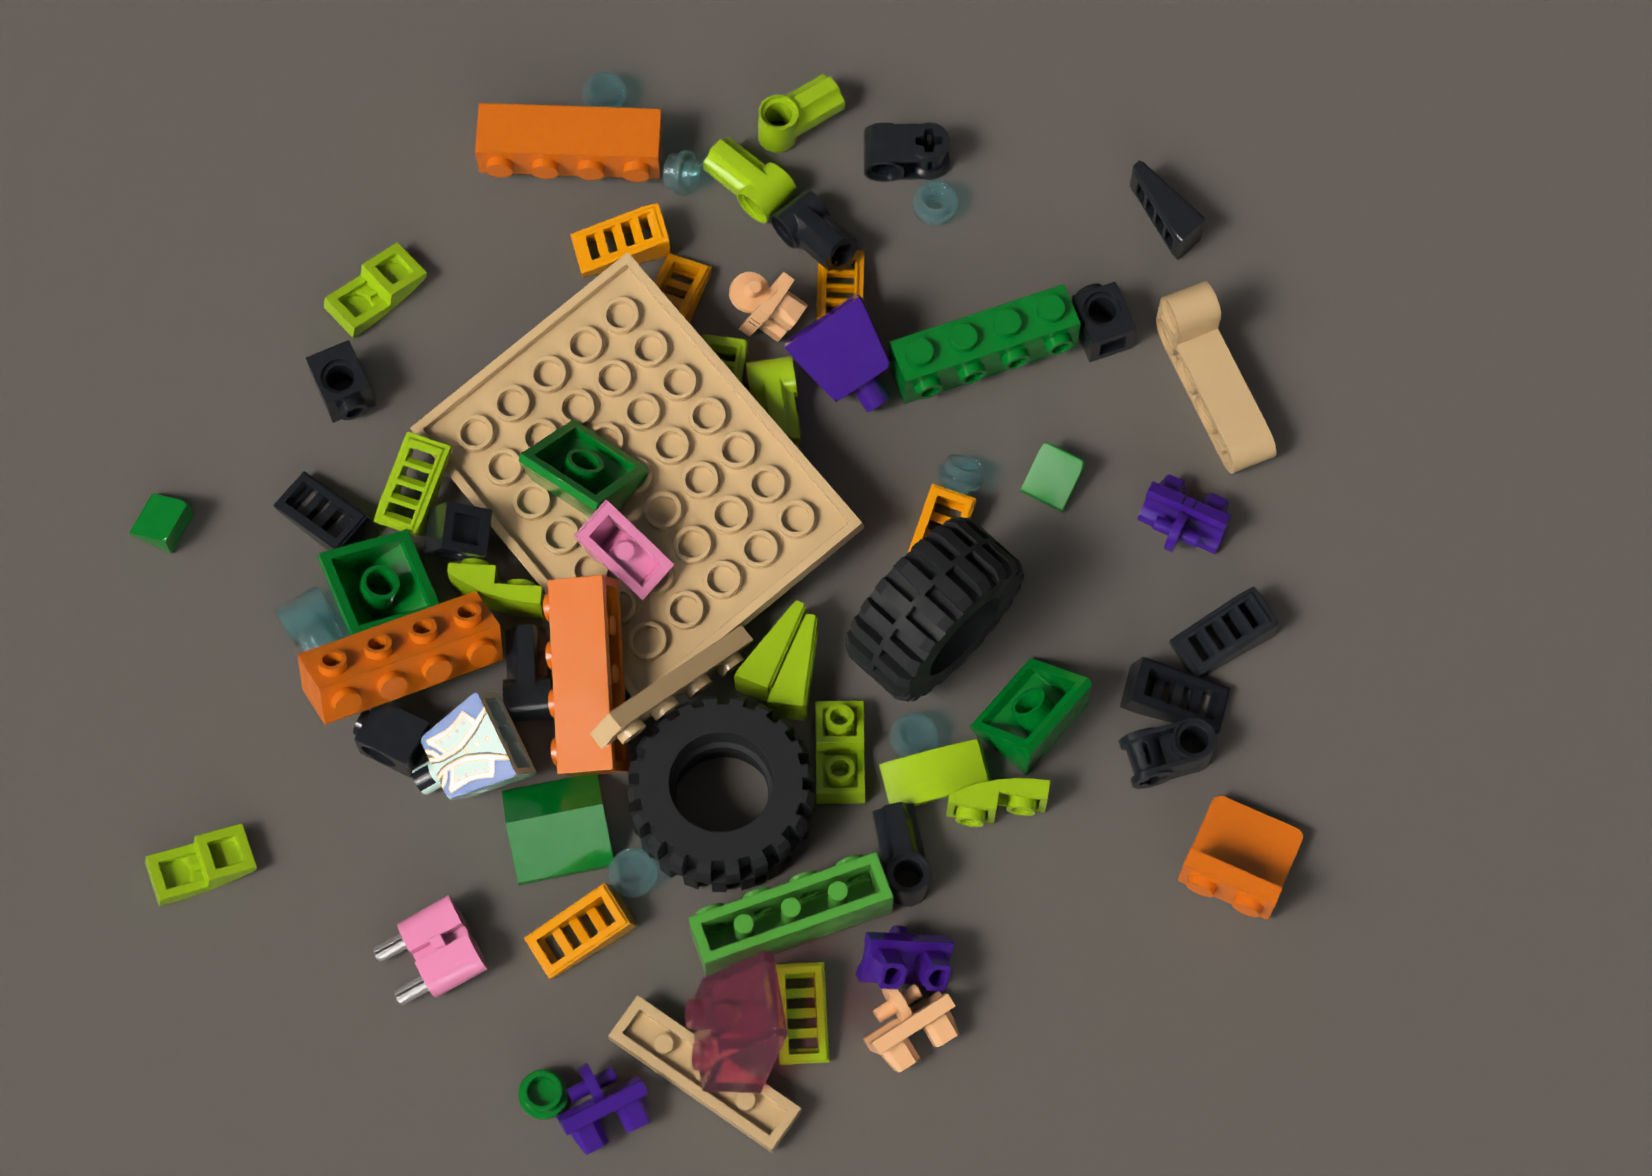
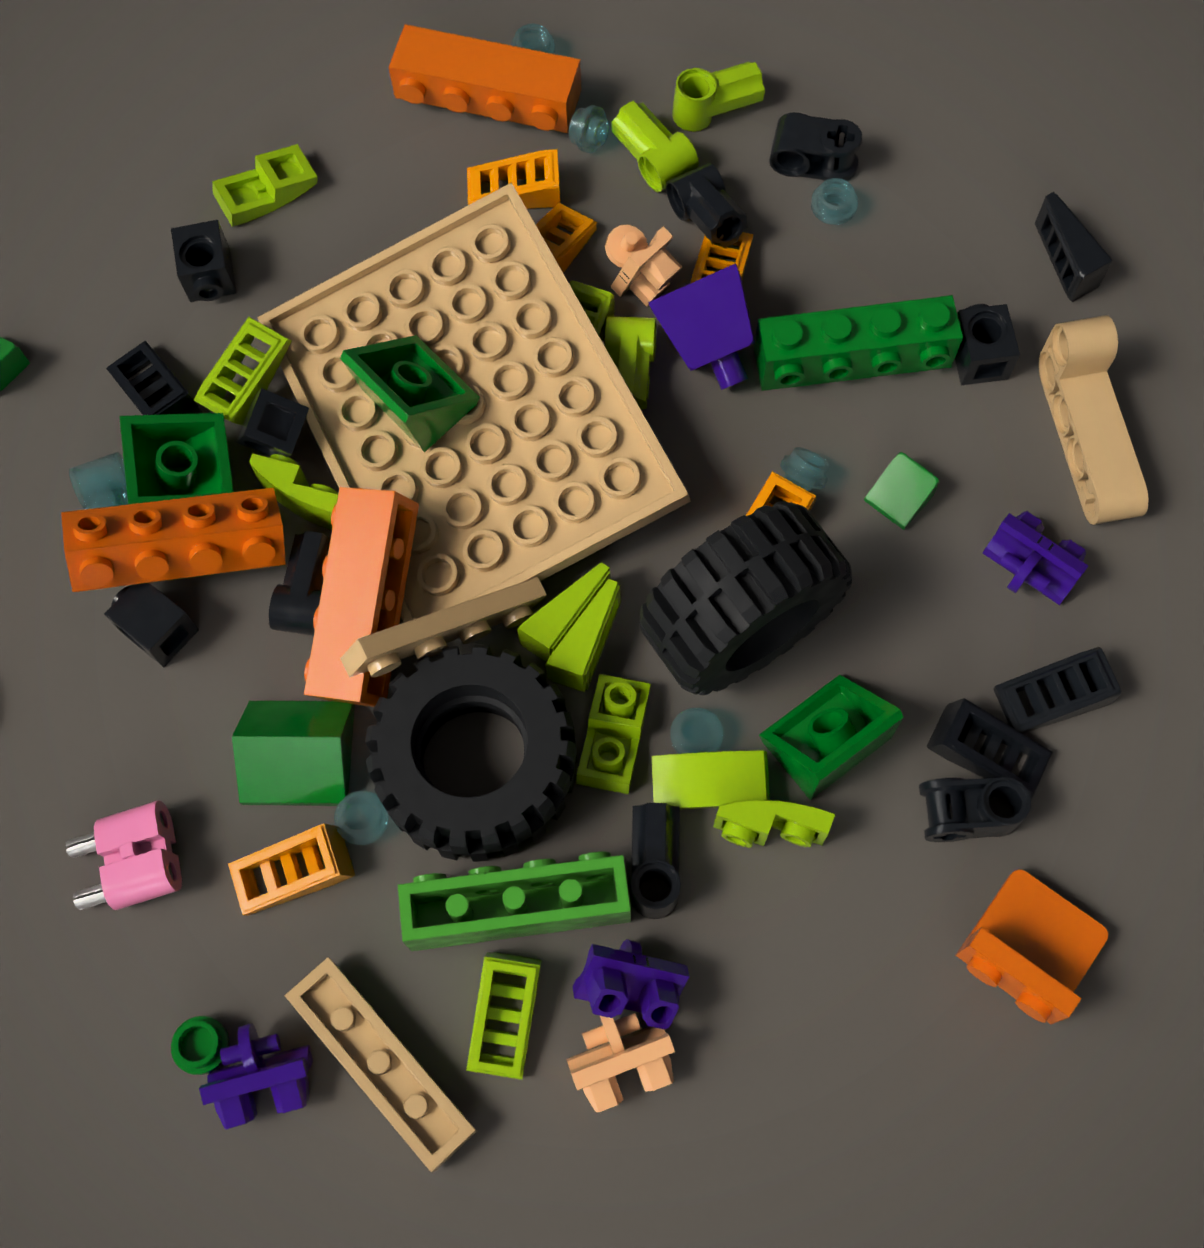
camera: 15 degrees right, 0 degrees up
(473, 750) = (225, 650): torso -> none
(623, 550) = (428, 472): bright pink slope -> none
(737, 1025) = (420, 1022): clear pink slope -> none

